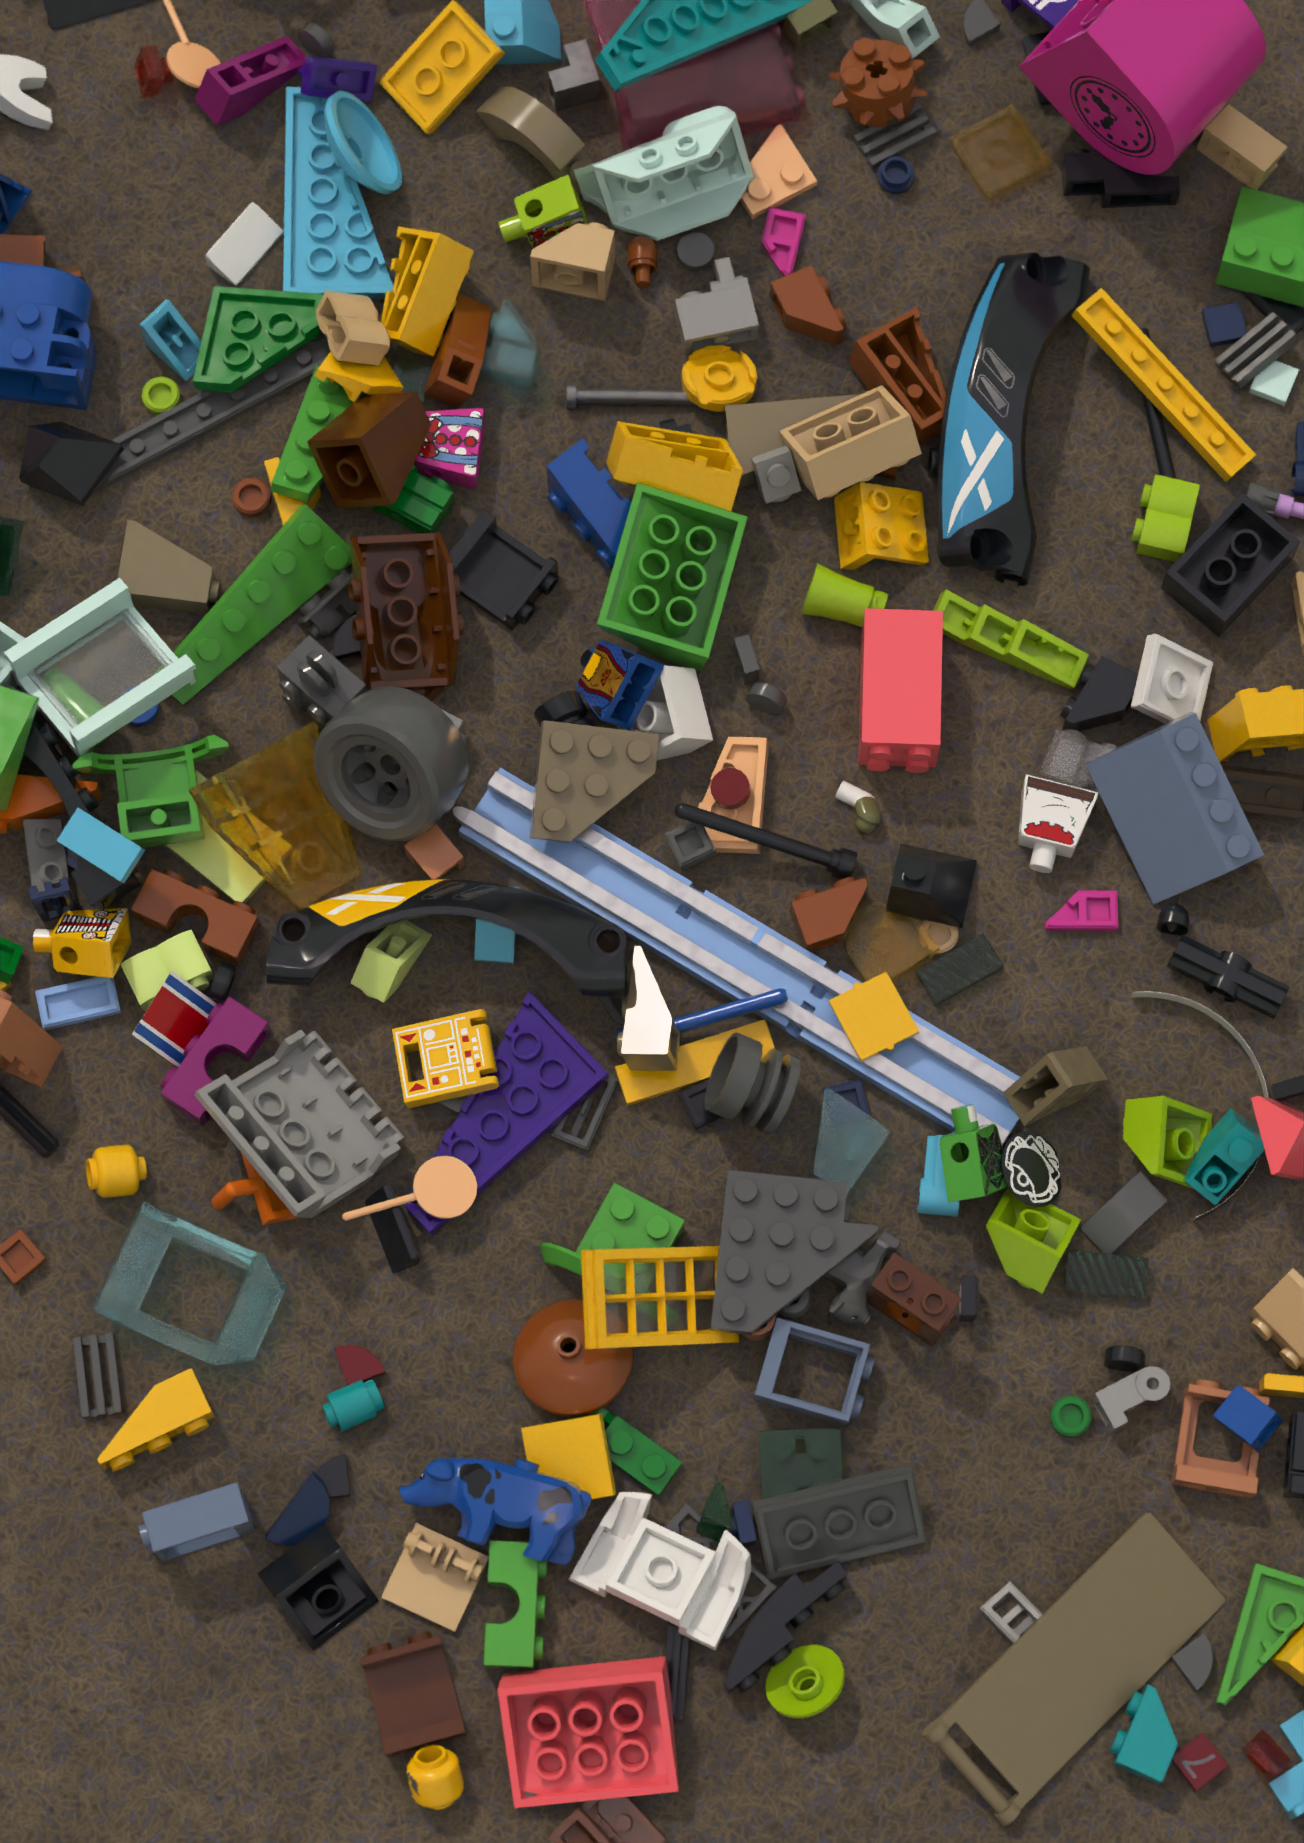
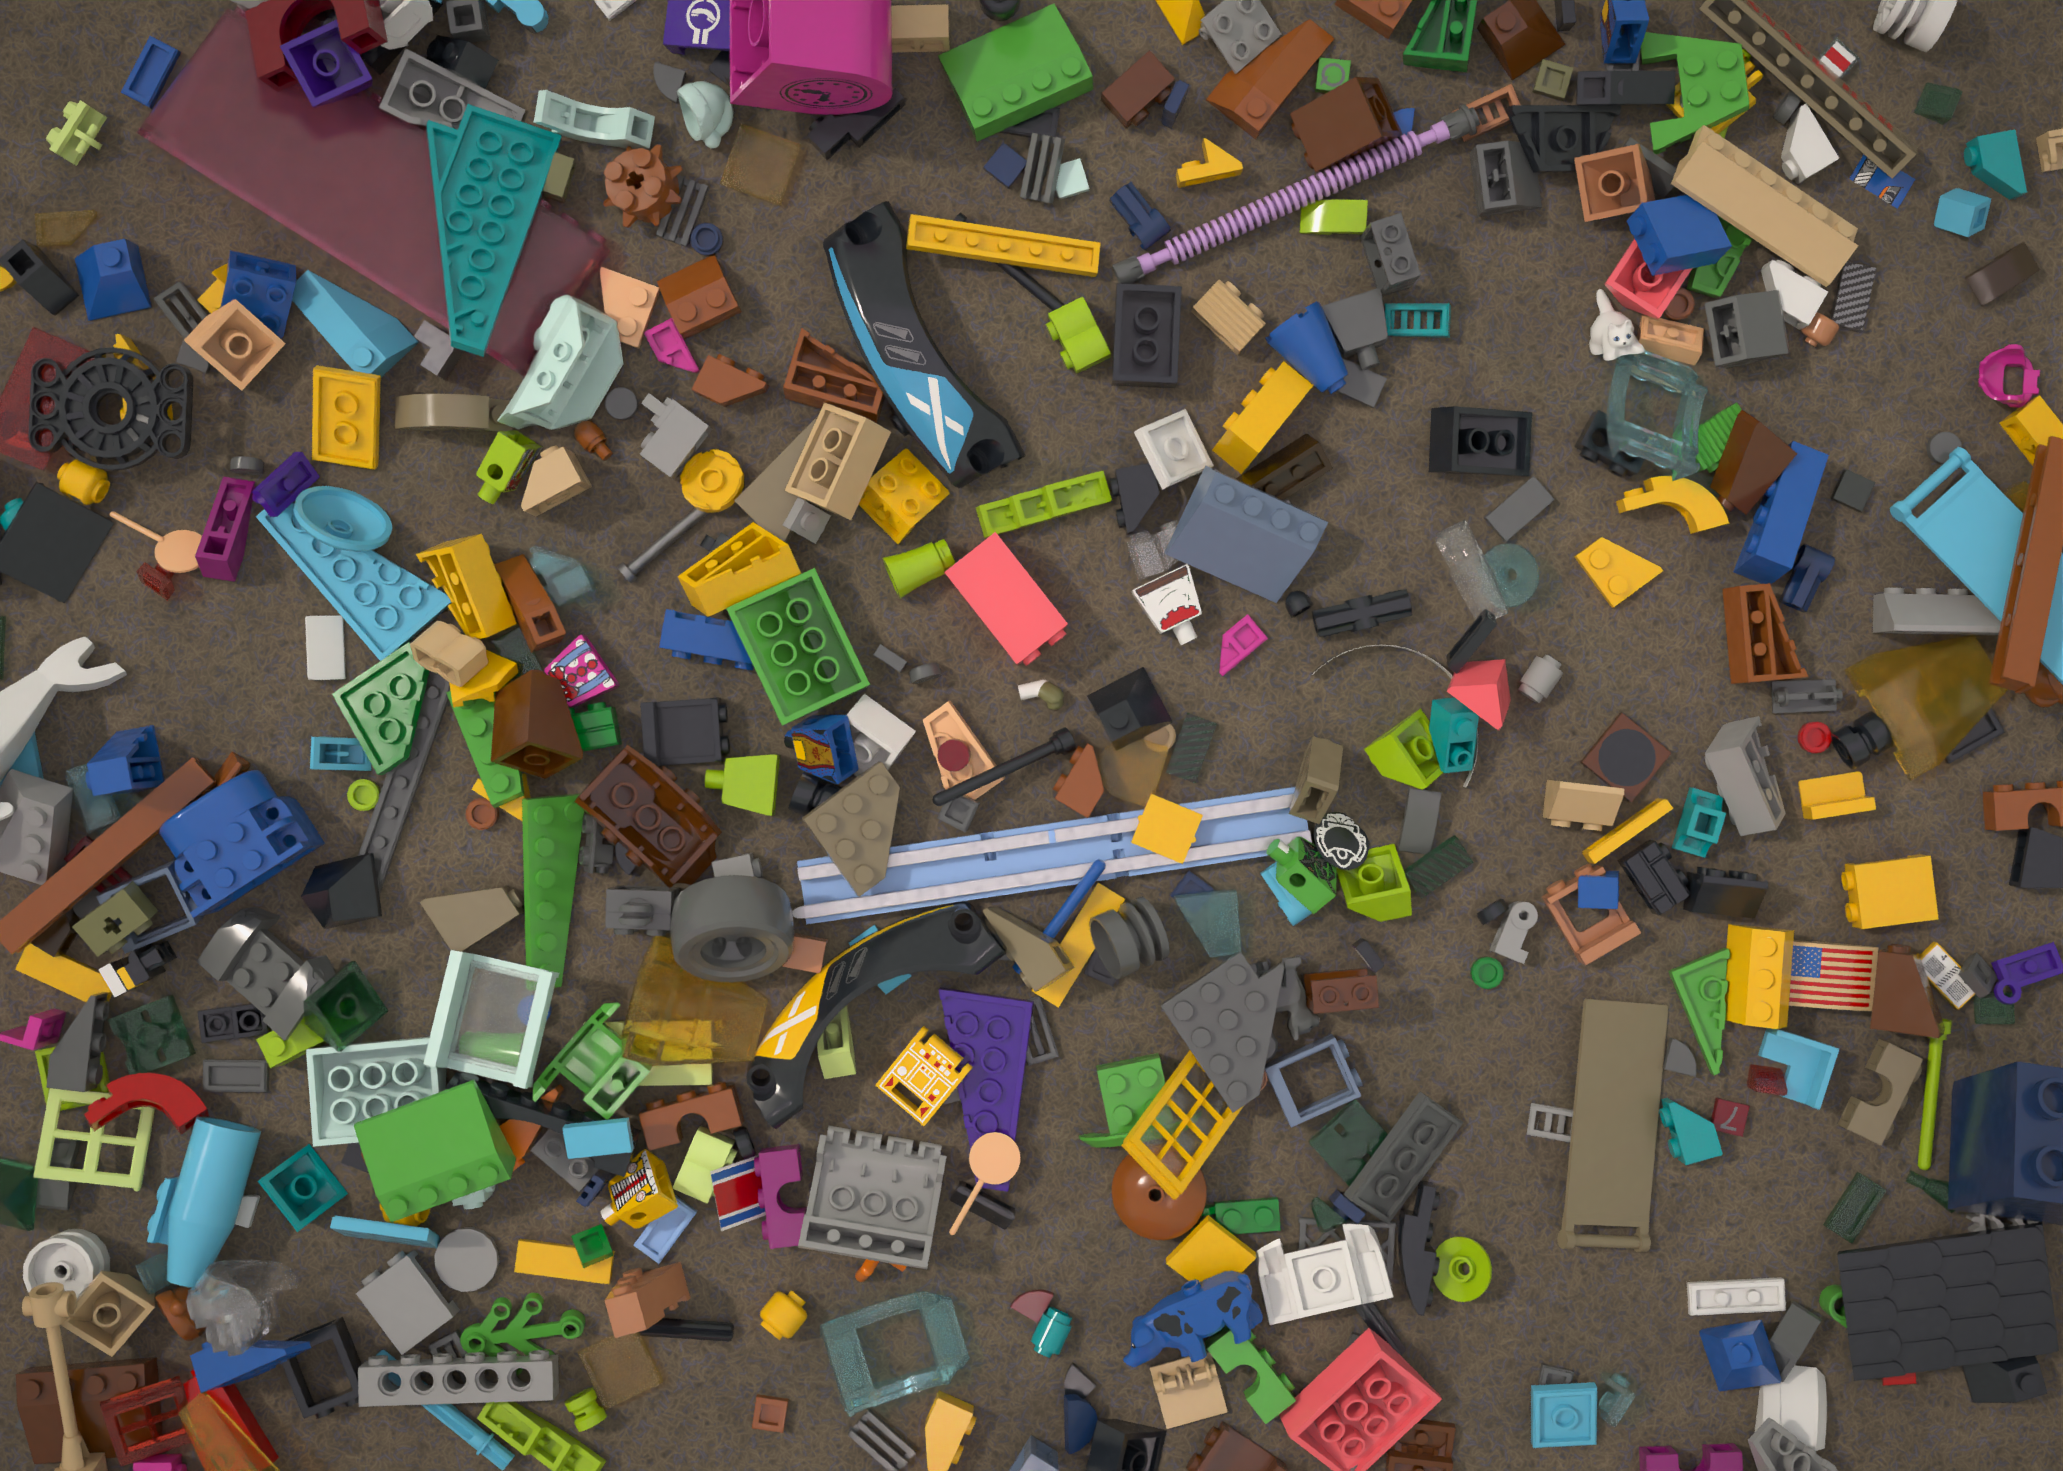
camera: 35 degrees left, 15 degrees up
(518, 662) = (748, 782): none -> lime torso
(845, 218) = (698, 297): none -> dark orange slope
(990, 67) = (706, 111): none -> light aqua piece

